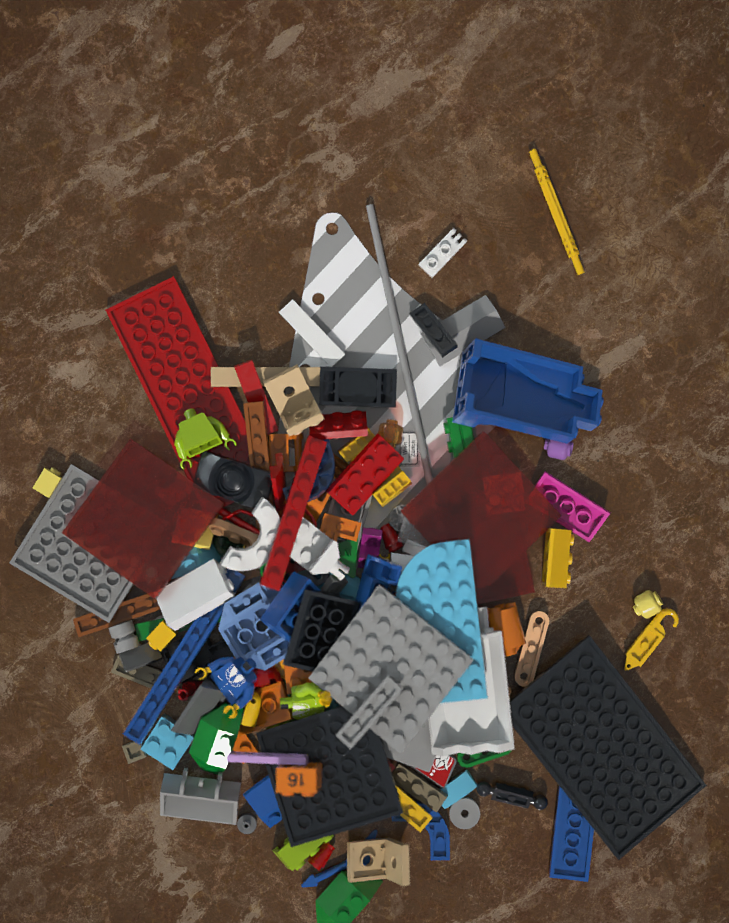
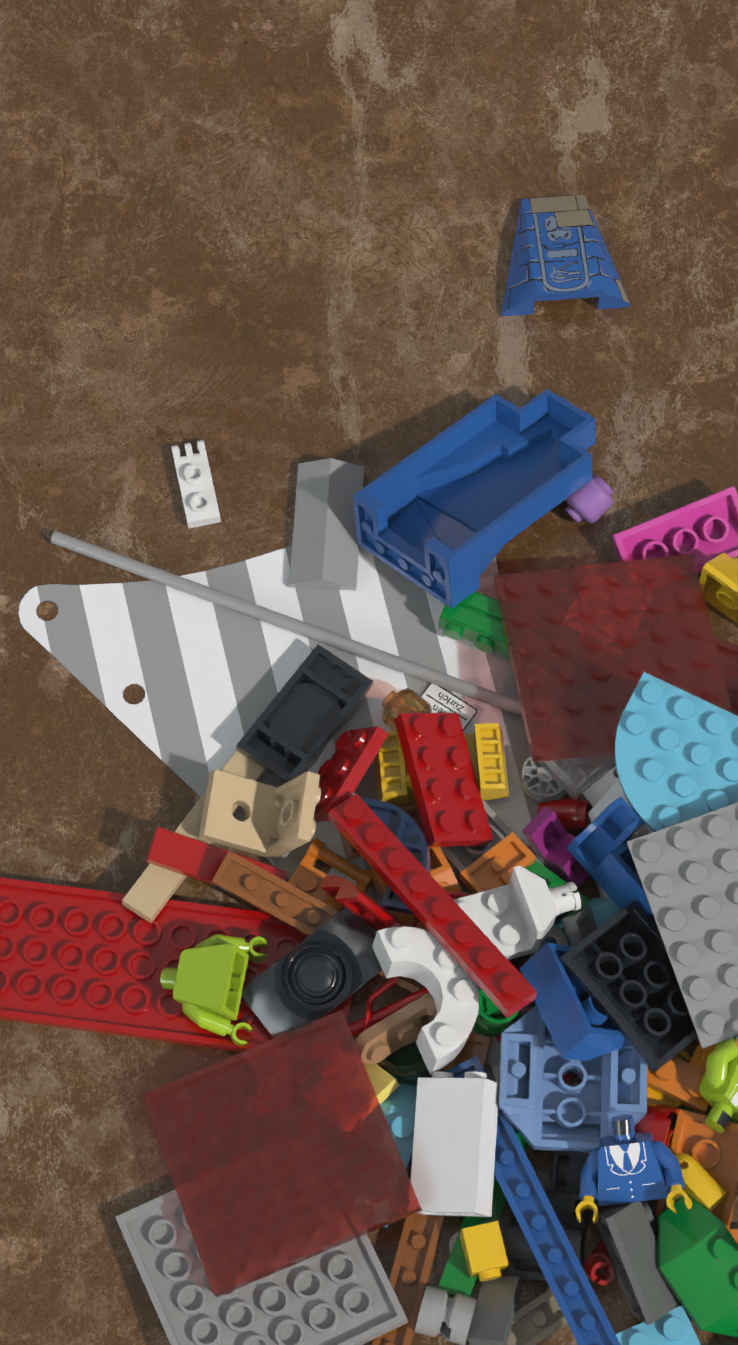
camera: 50 degrees left, 20 degrees down
(48, 481) = (118, 1272): light yellow brick -> none
(312, 333) = (177, 732): white tile -> none
(433, 330) = (298, 557): black plate -> none
(557, 212) = (251, 301): yellow axle -> none
(684, 346) = (560, 257): none -> blue wedge

